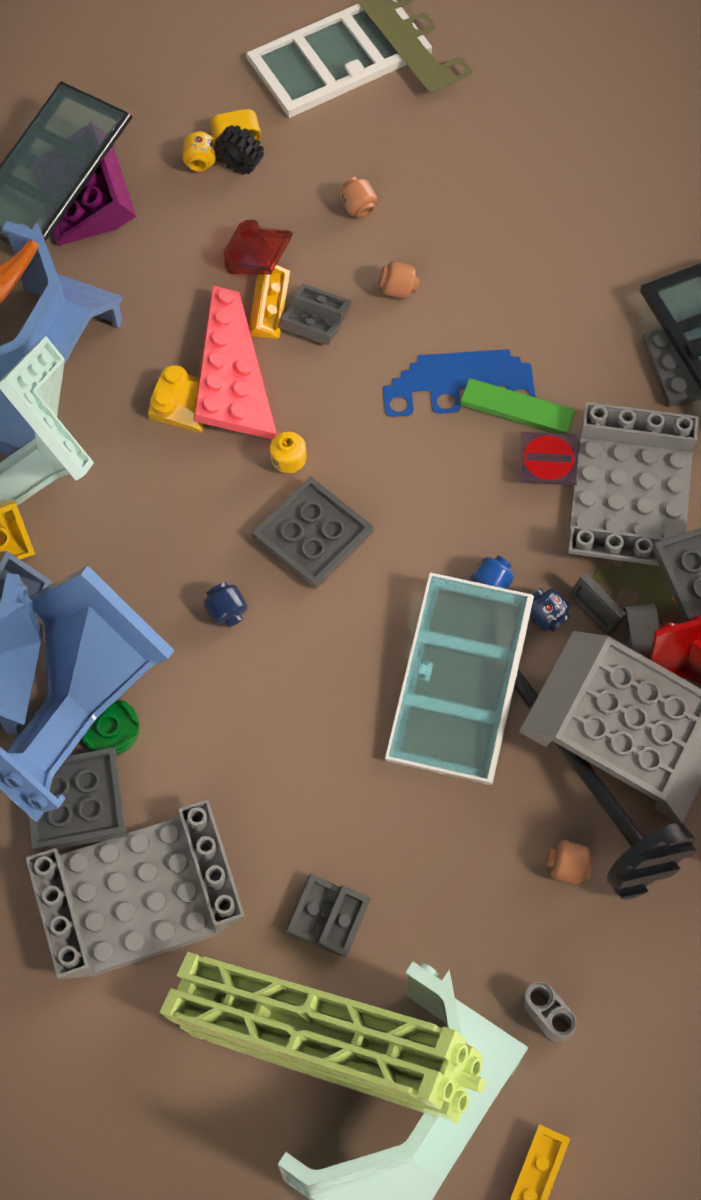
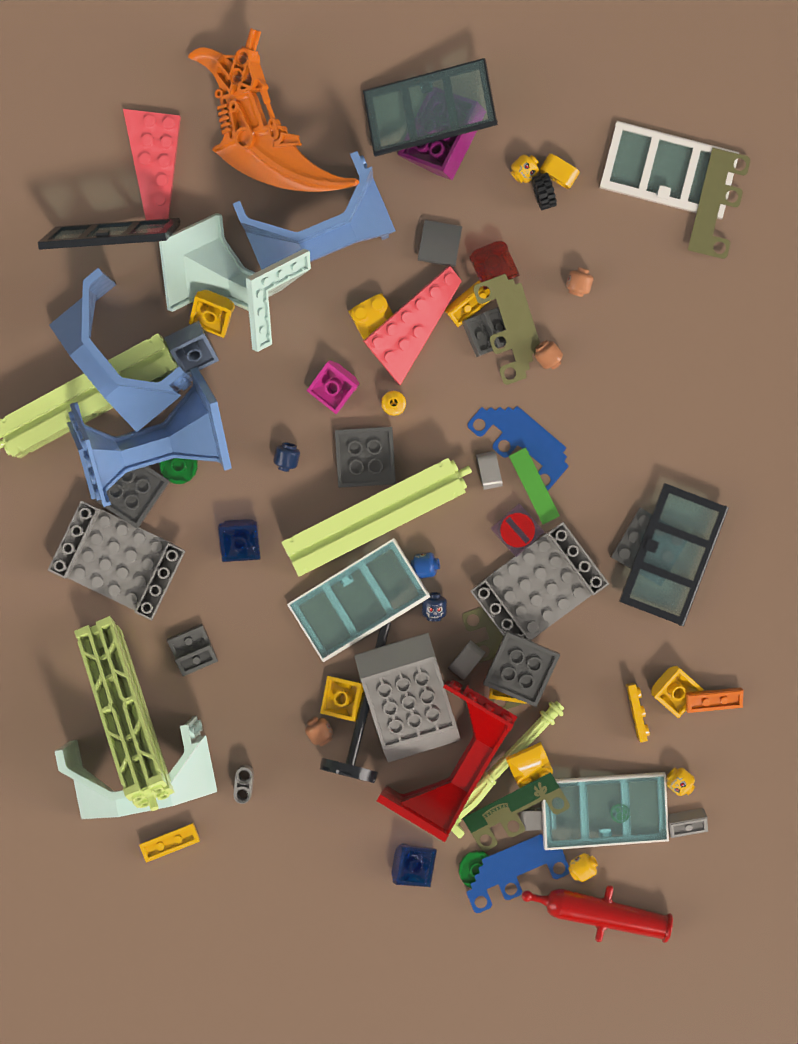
camera: 45 degrees right, 25 degrees up
(181, 279) = (439, 243): none -> dark grey slope
(206, 492) = (333, 386): none -> dark pink slope
(261, 738) = (239, 540): none -> clear blue slope
(336, 276) = (518, 322): none -> olive piece
(384, 576) = (376, 516): none -> yellowish green piece
(456, 430) = (489, 470): none -> light grey beam
(556, 798) = (342, 698): none -> yellow slope
(597, 604) = (460, 626): dark grey tile -> none

